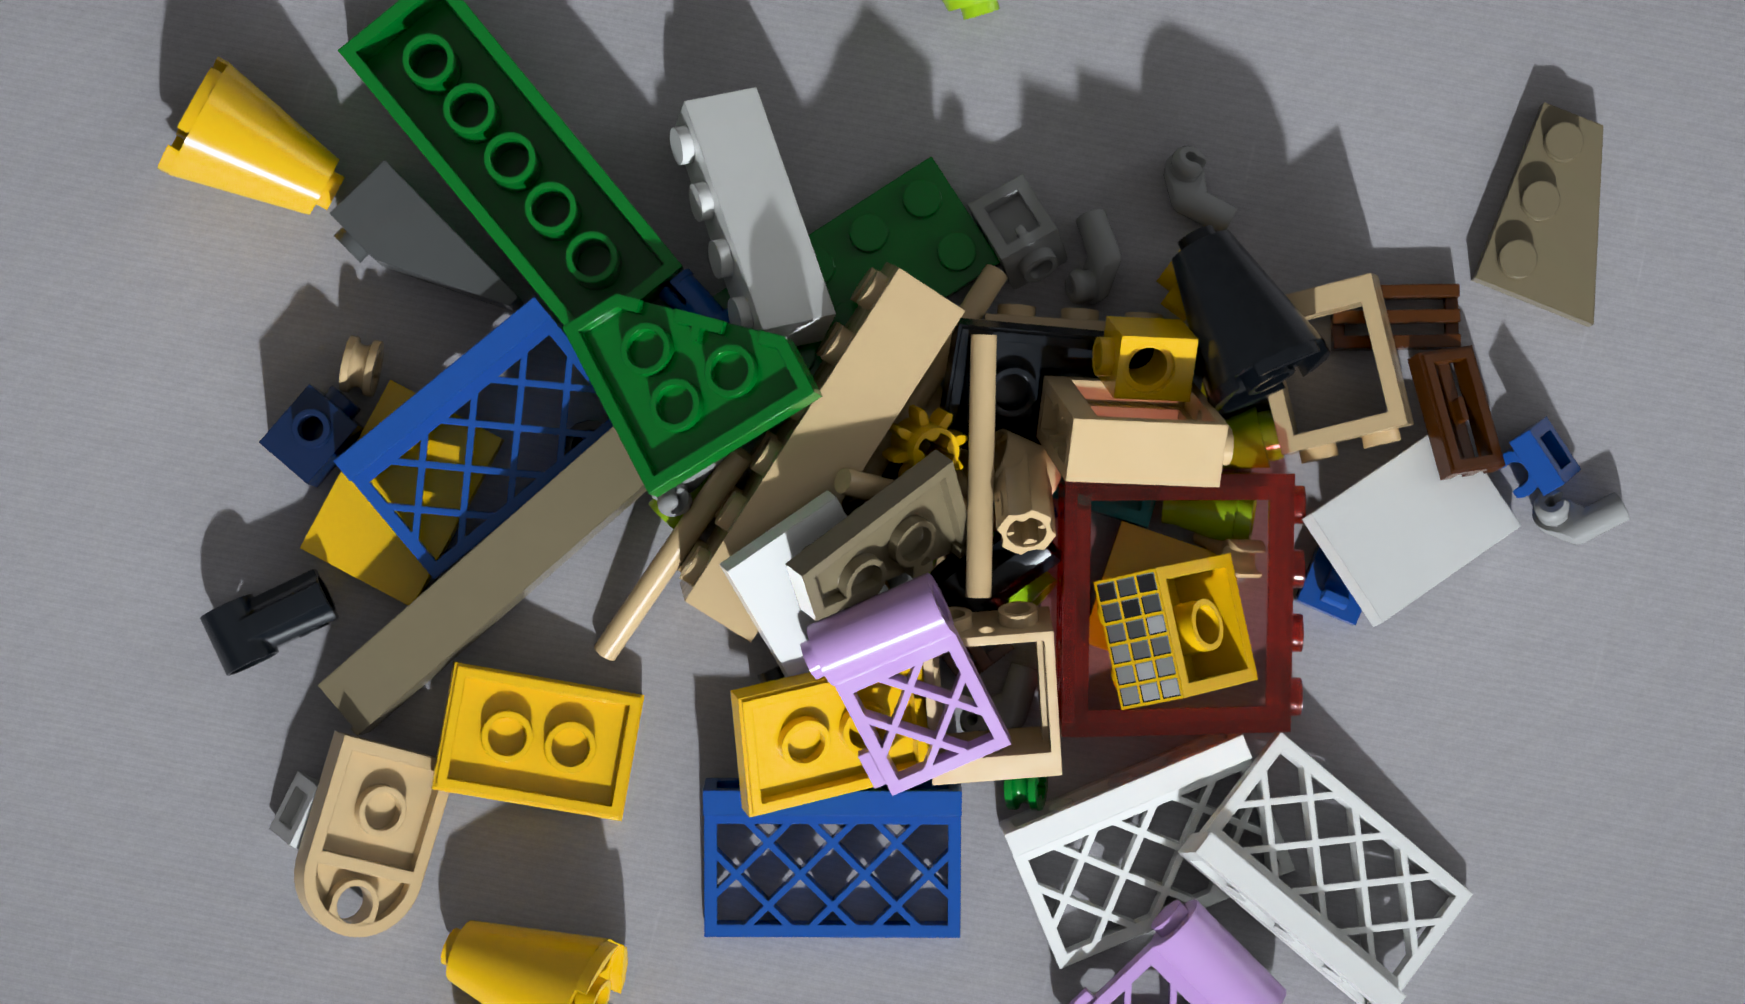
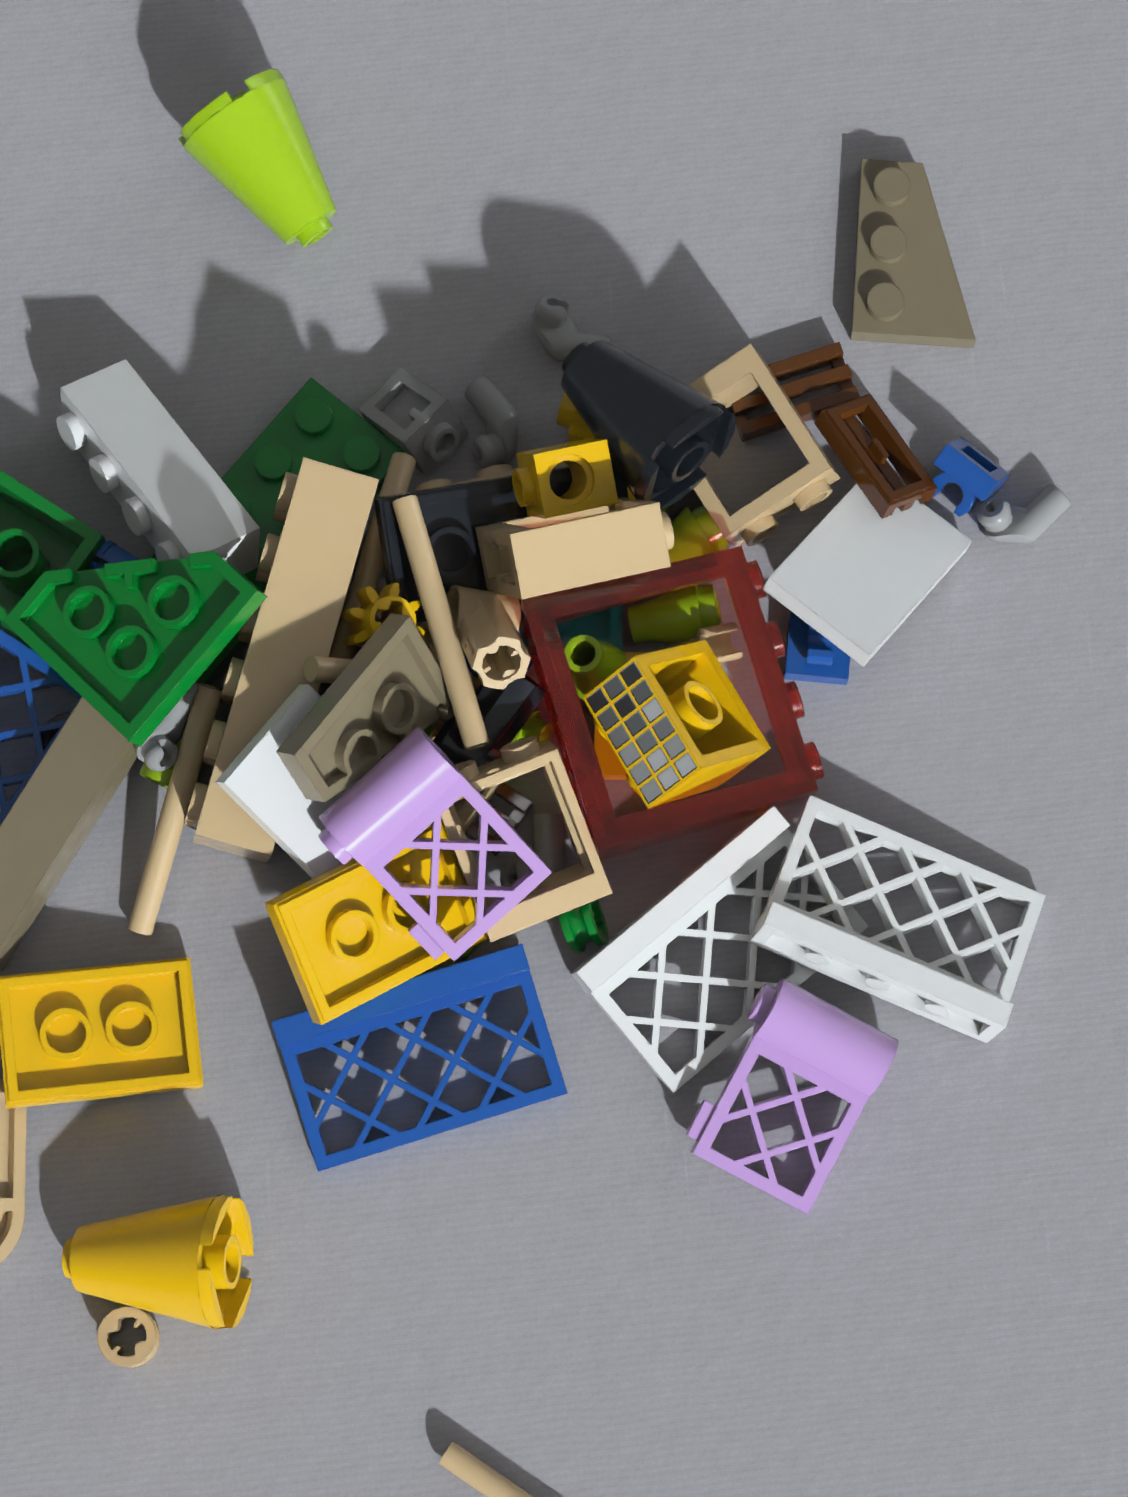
camera: 15 degrees left, 10 degrees down
(1129, 553) = (605, 658): none -> lime cone

